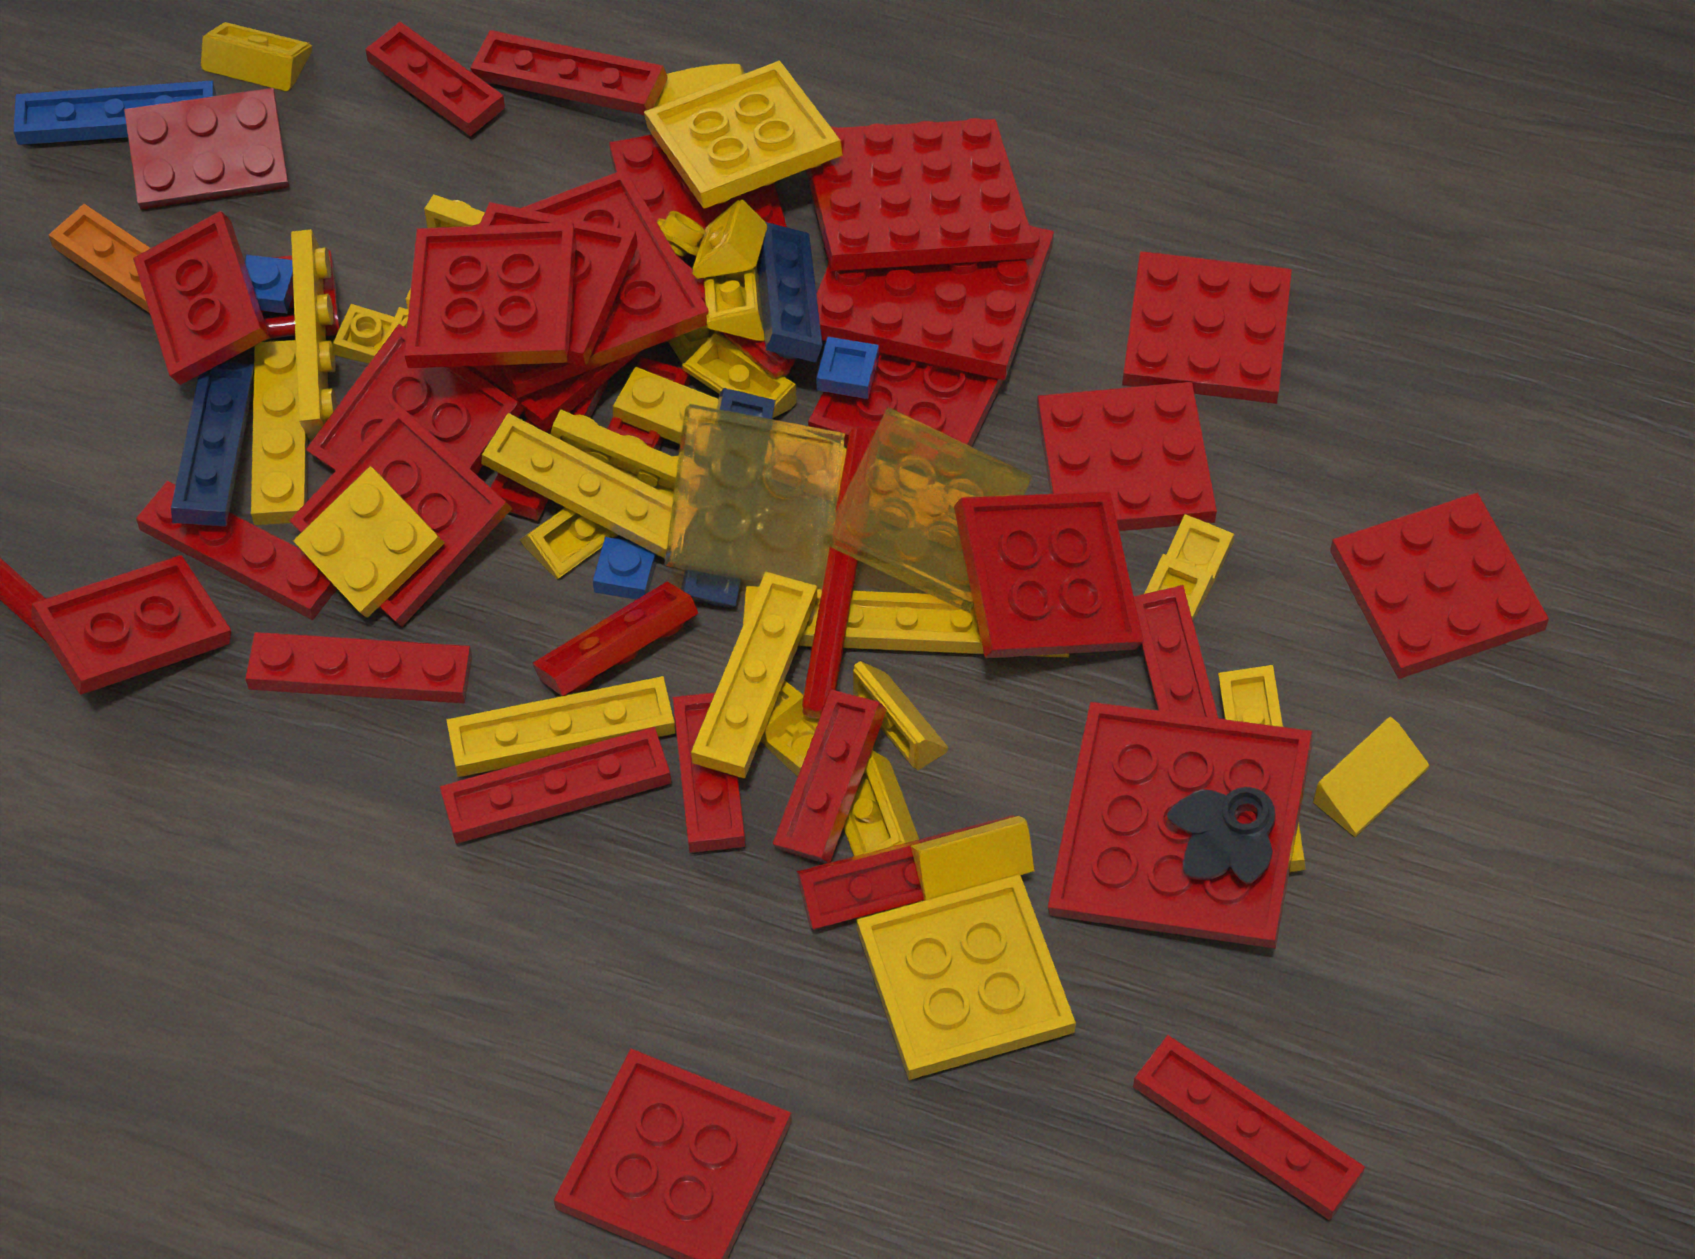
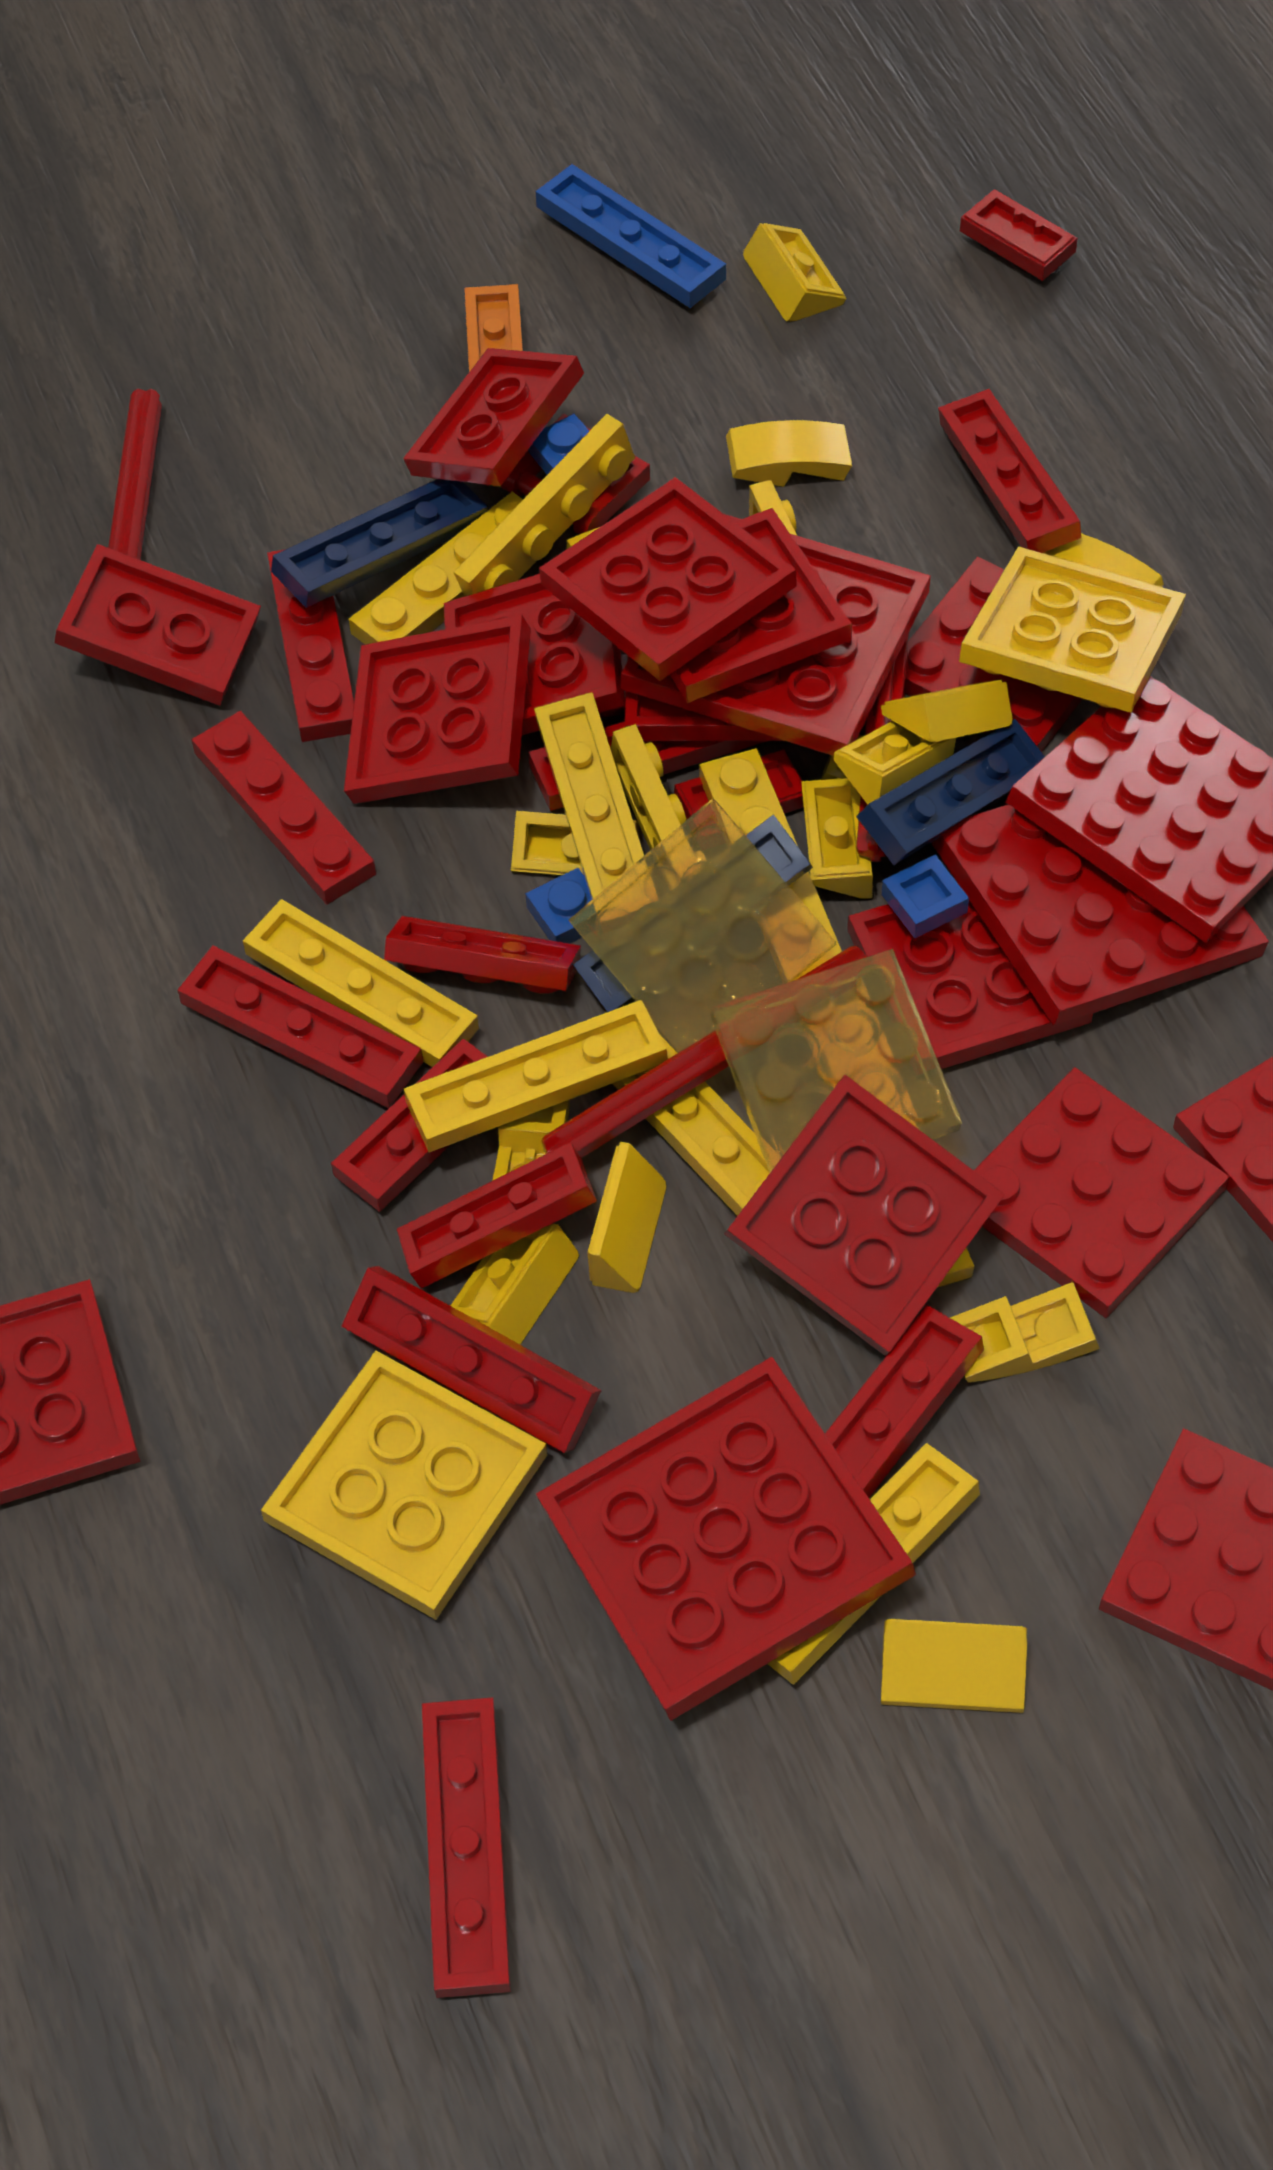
camera: 50 degrees right, 0 degrees up
(206, 148) = (659, 313): red plate -> none
(368, 542) = (386, 708): yellow plate -> none
(401, 171) = (782, 447): none -> yellow slope
(435, 78) = (902, 396): red plate -> none
(682, 233) = (925, 669): yellow plate -> none
(973, 857) = (517, 1389): yellow slope -> none
(1219, 839) = (723, 1576): black plate -> none

